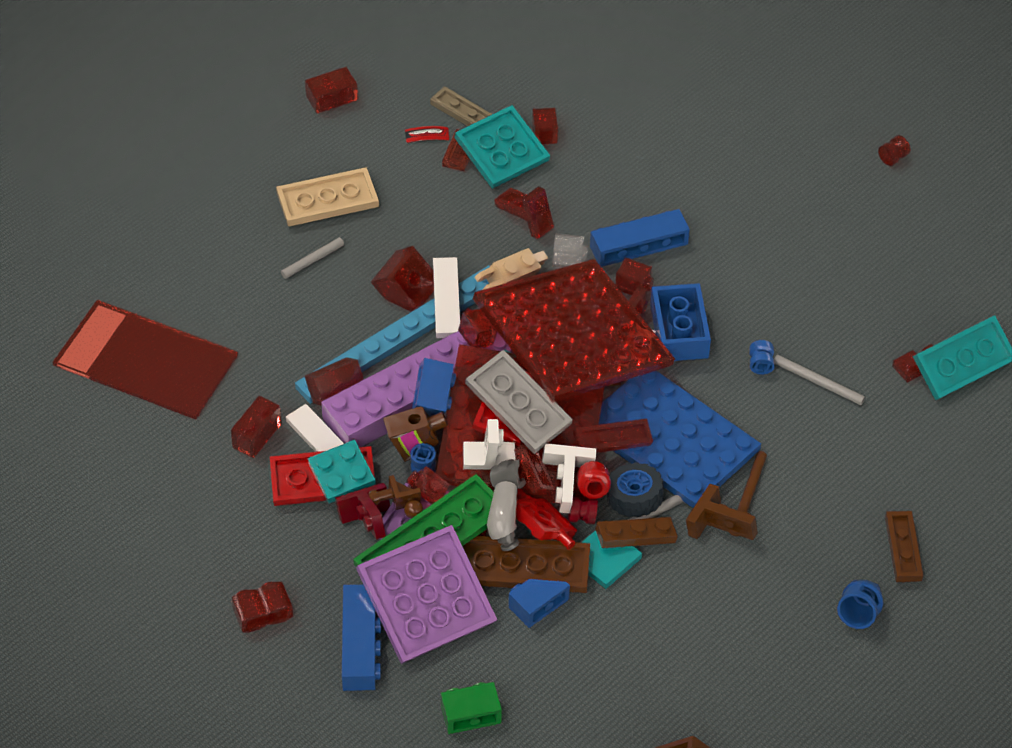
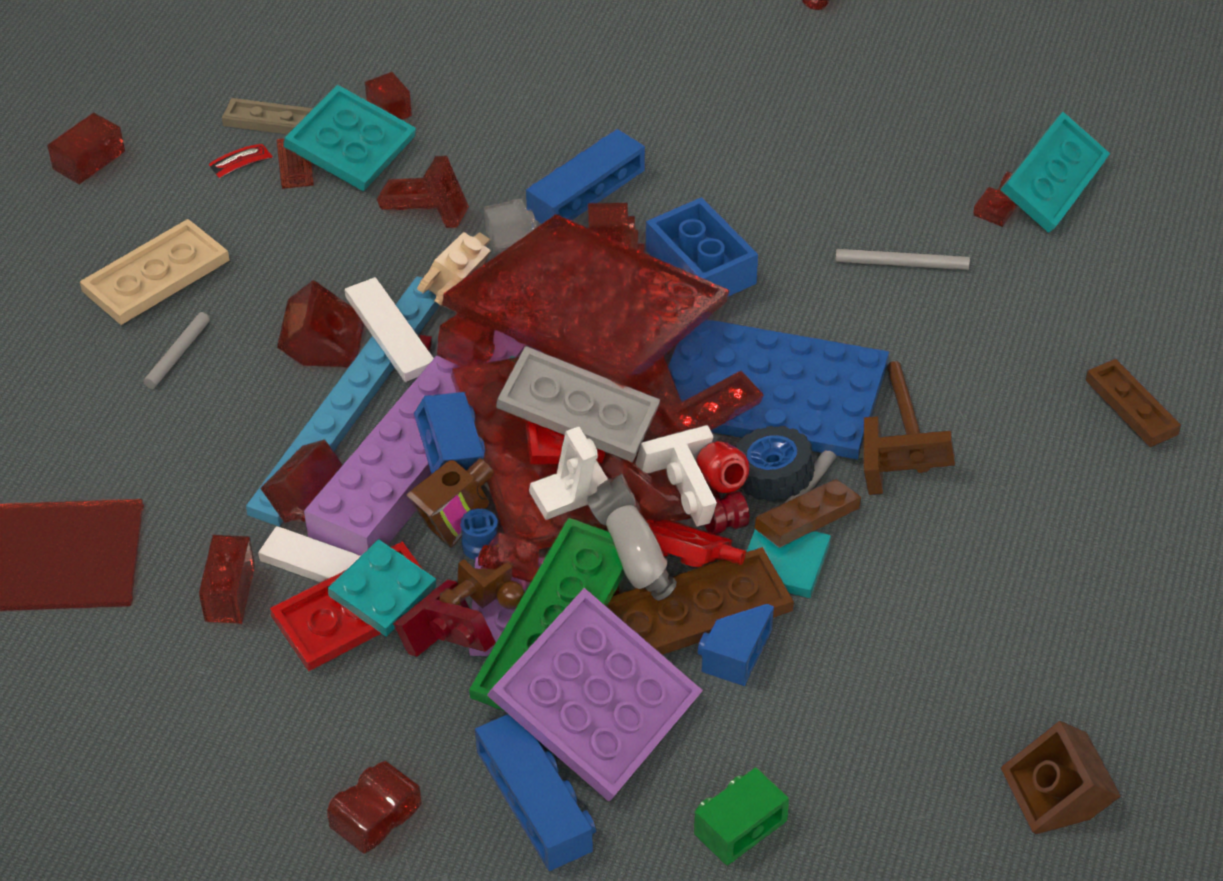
camera: 25 degrees left, 5 degrees down
(761, 357) = (821, 257): blue wheel -> none
(860, 604) = (1137, 484): blue helmet -> none

